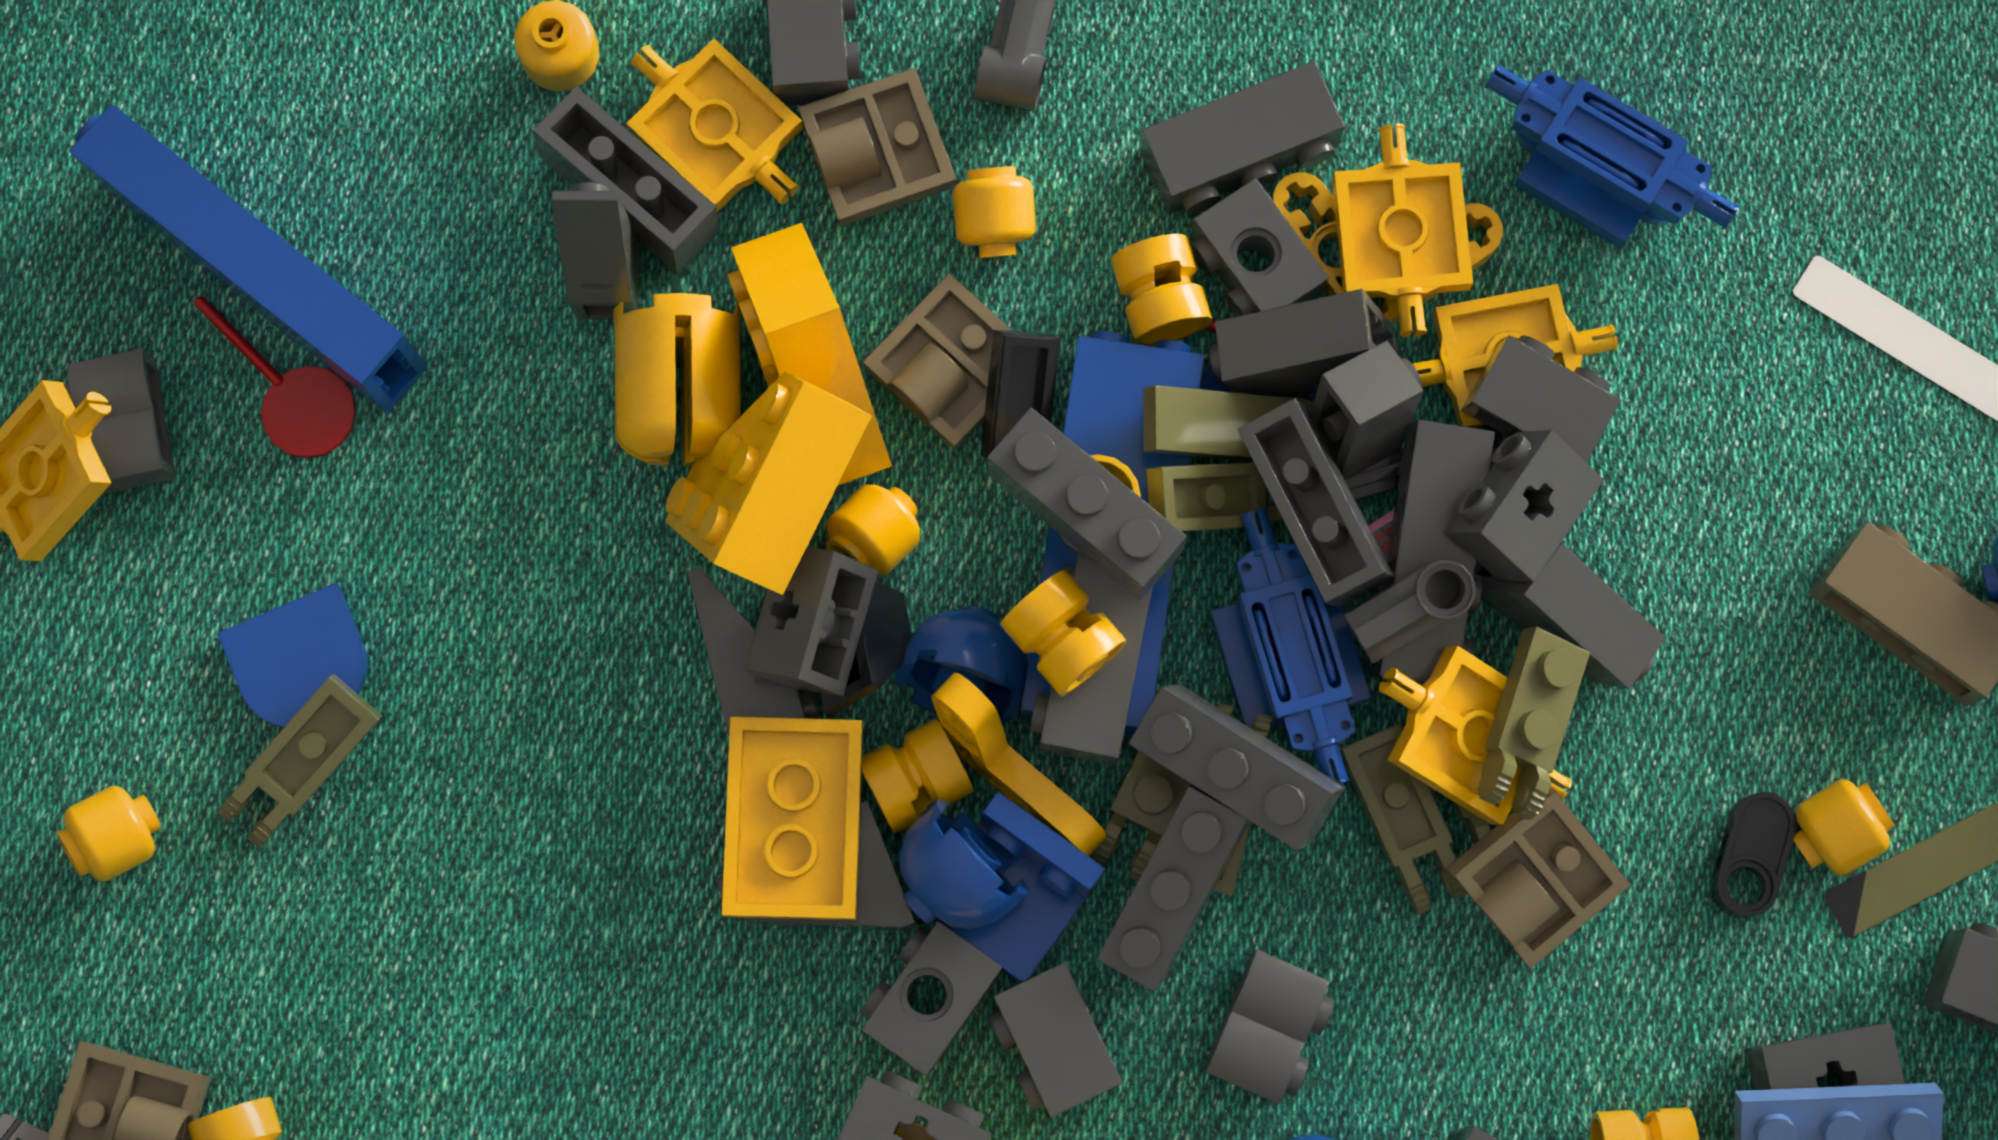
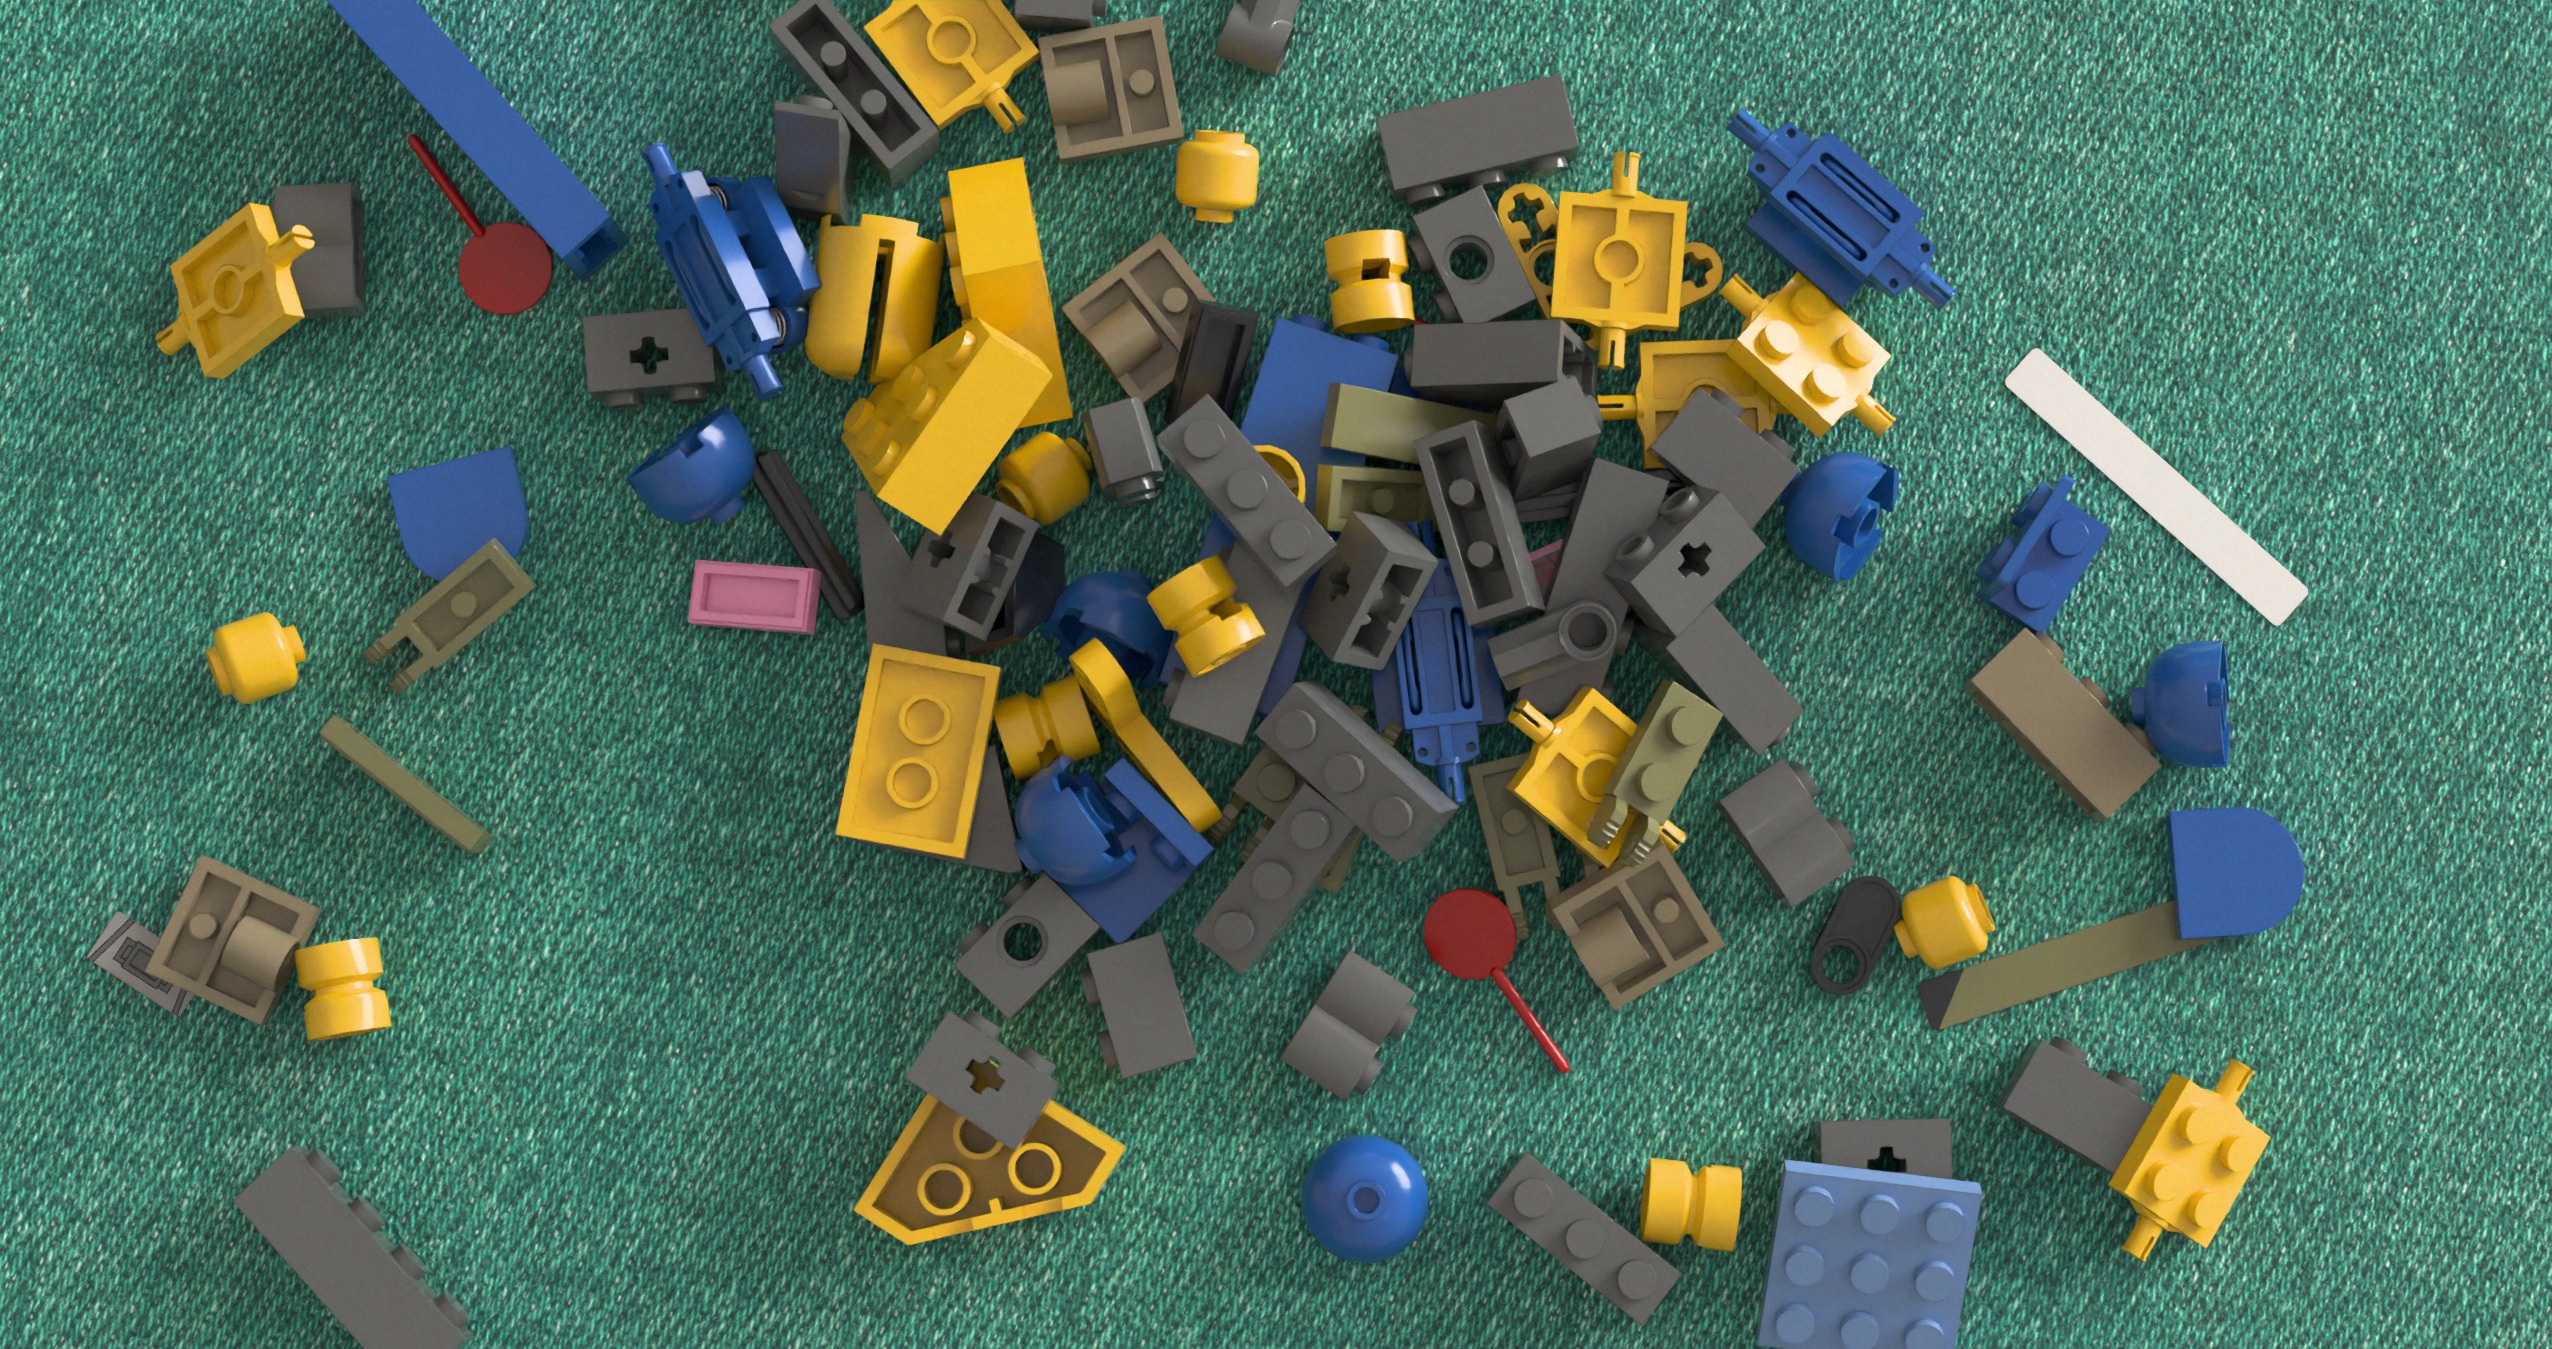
camera: 10 degrees right, 5 degrees up
(279, 938) = (406, 785): none -> olive tile
(436, 461) = (622, 340): none -> dark grey brick
(529, 577) = (699, 471): none -> blue cylinder
(534, 366) = (734, 264): none -> blue piece
(603, 693) = (754, 597): none -> bright pink tile
(645, 624) = (807, 535): none -> black axle
(949, 490) = (1124, 452): none -> dark grey brick
(1217, 586) = (1367, 591): none -> dark grey brick
(1378, 918) = (1475, 939): none -> red piece
(1602, 292) = (1808, 354): none -> yellow plate
(1658, 439) = (1835, 512): none -> blue cylinder
(1668, 762) = (1786, 831): none -> dark grey brick
(1866, 453) = (2040, 565): none -> blue bracket

